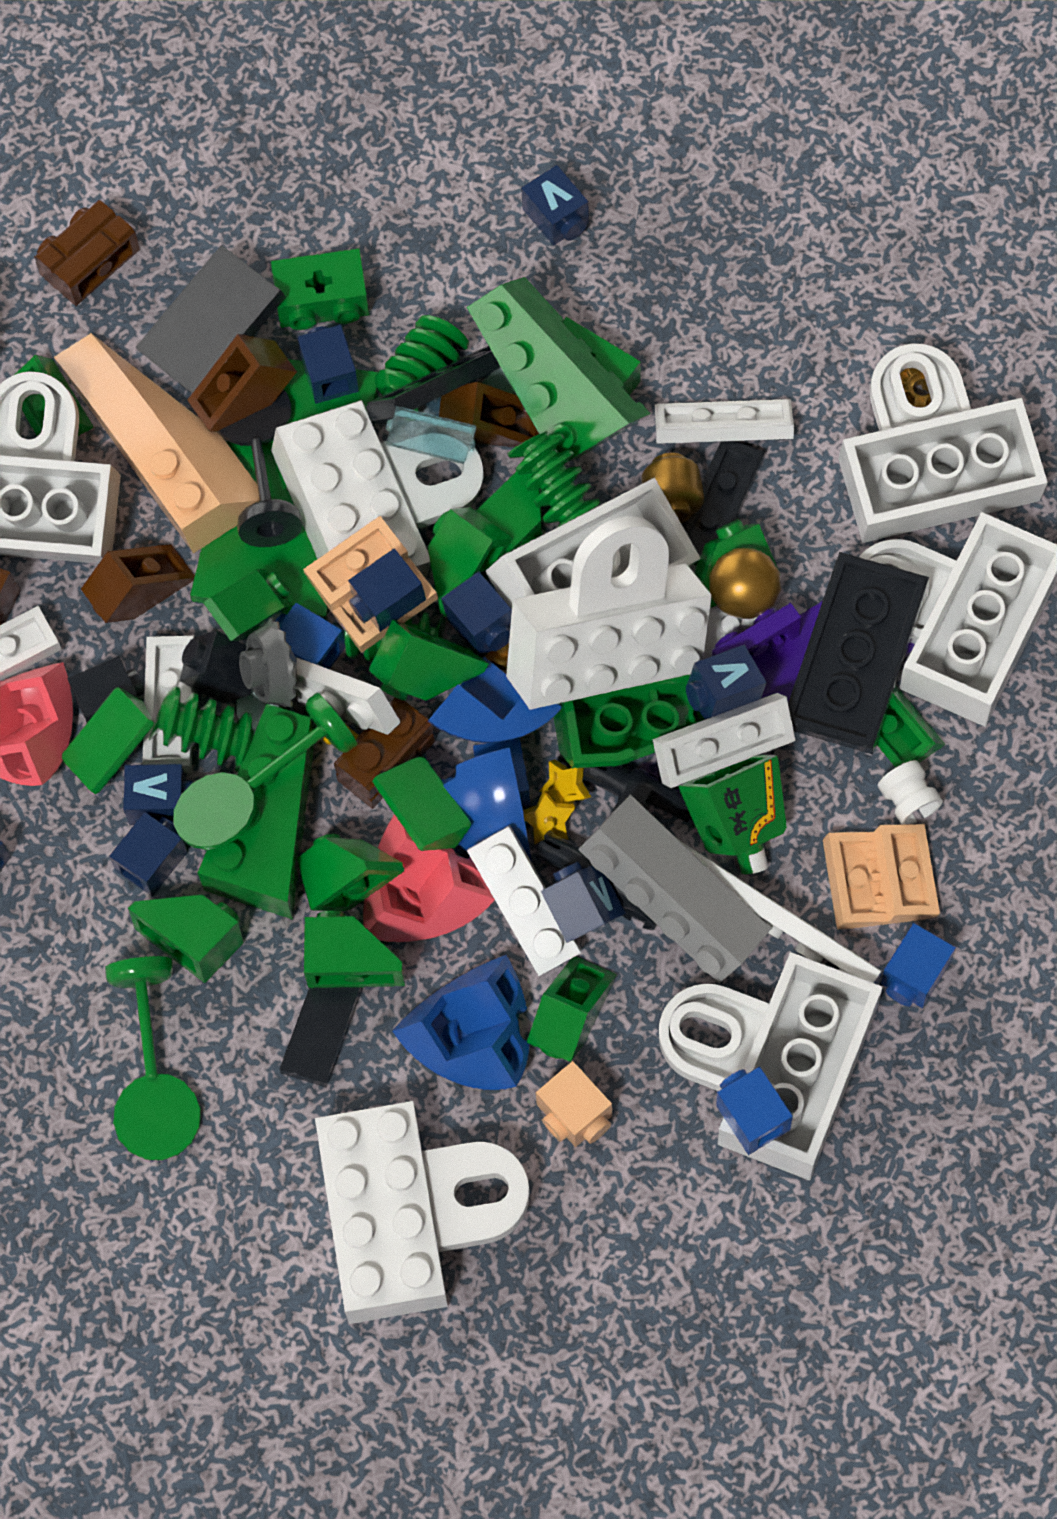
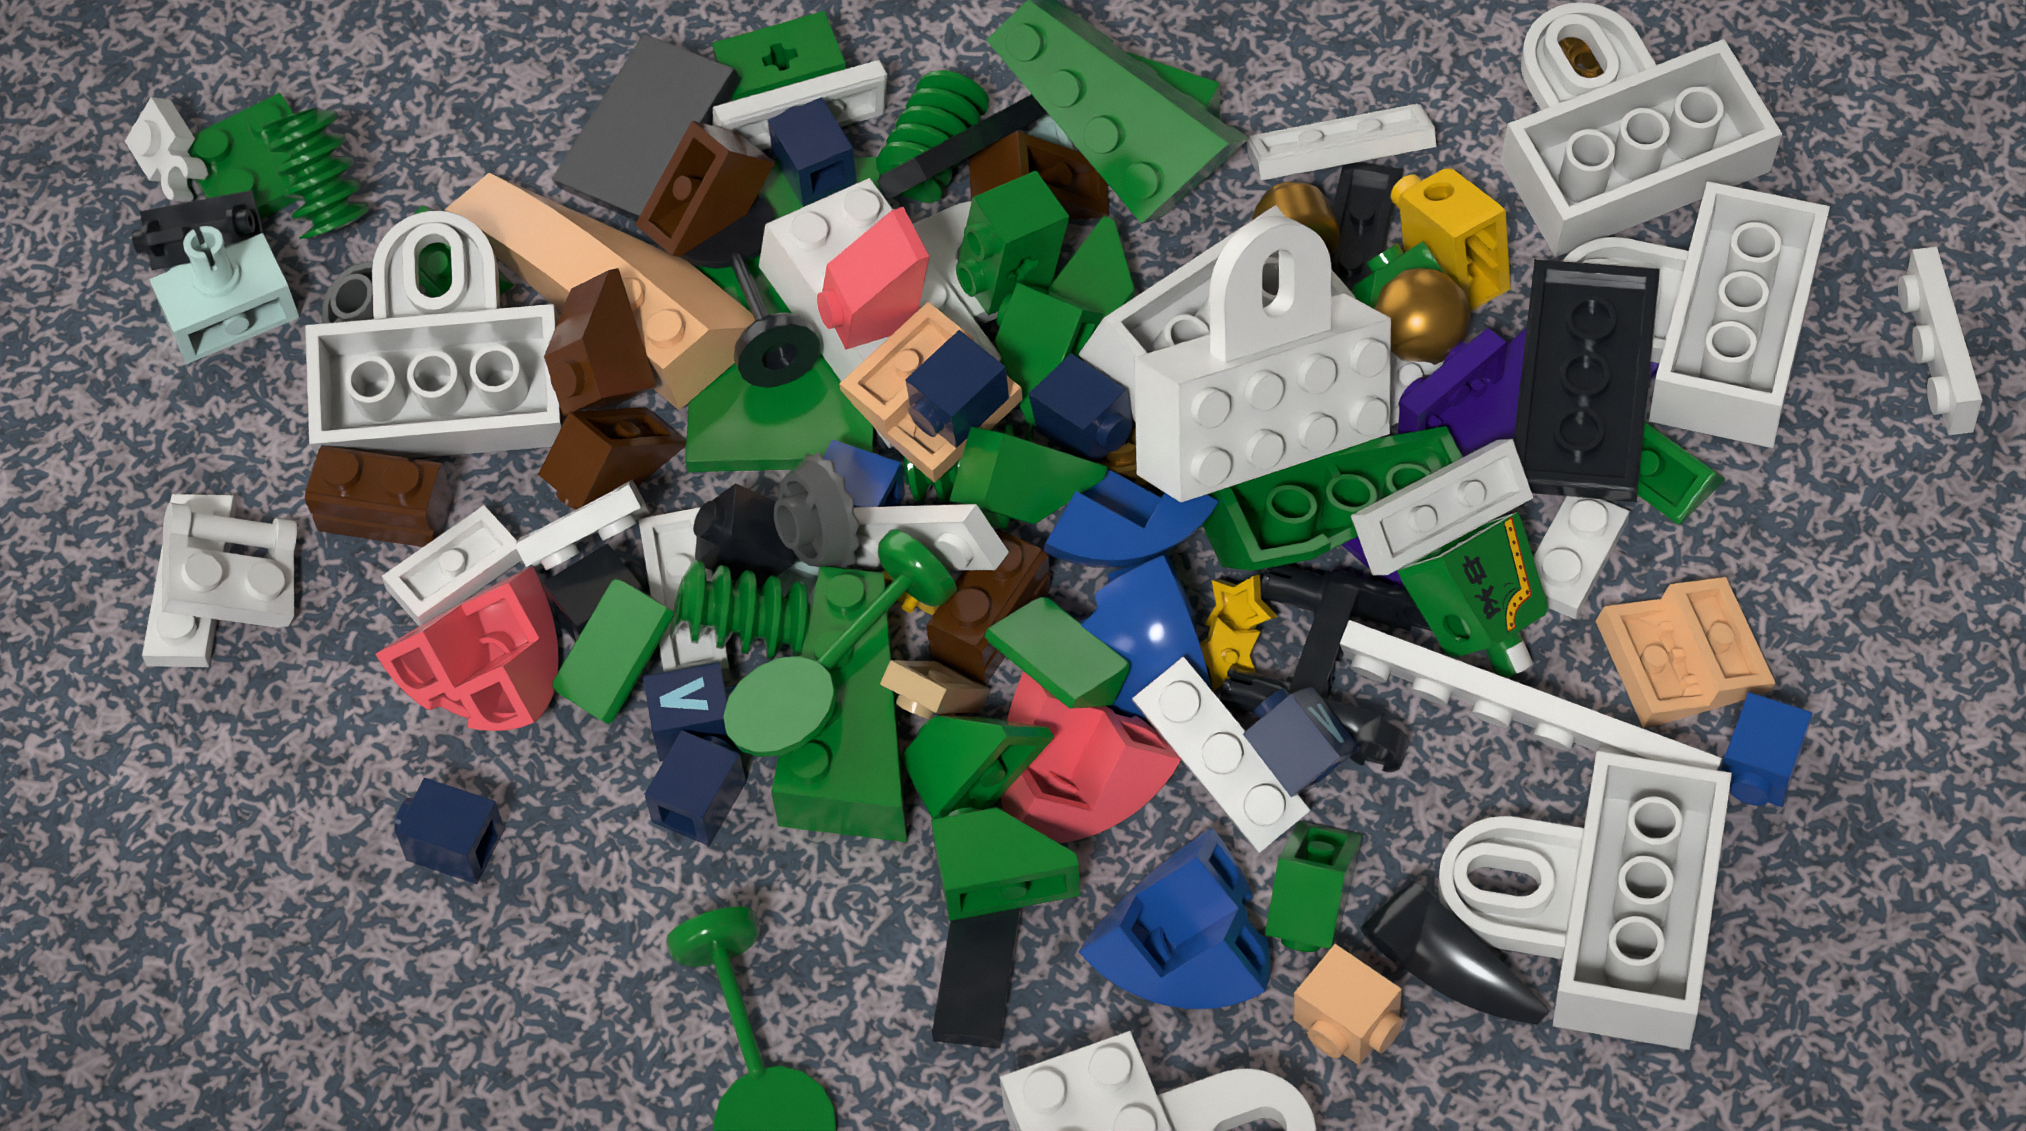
camera: 10 degrees left, 10 degrees down
(86, 251) = (465, 76): reddish brown brick -> none
(120, 635) = (604, 516): none -> white plate
(136, 504) = (597, 348): none -> reddish brown slope
(190, 931) = (775, 870): green slope -> none
(249, 603) = (770, 446): green slope -> none
(330, 811) = (933, 688): none -> tan plate
(341, 497) = (875, 282): none -> coral slope
(357, 320) = (849, 94): none -> white tile
(430, 435) = (947, 193): clear light blue piece -> none
(451, 475) = (1010, 239): none -> green brick
(553, 478) = (1138, 227): green piece -> none
(653, 1081) = (1440, 951): none -> black piece
(674, 889) = (1422, 702): light grey brick -> none
(724, 682) = (1427, 433): dark blue brick -> none
(753, 1109) = (1602, 951): blue brick -> none
(784, 504) = (1459, 228): none -> yellow torso
(820, 784) = (1577, 551): none -> white plate
(909, 792) = (1697, 539): white wheel -> none

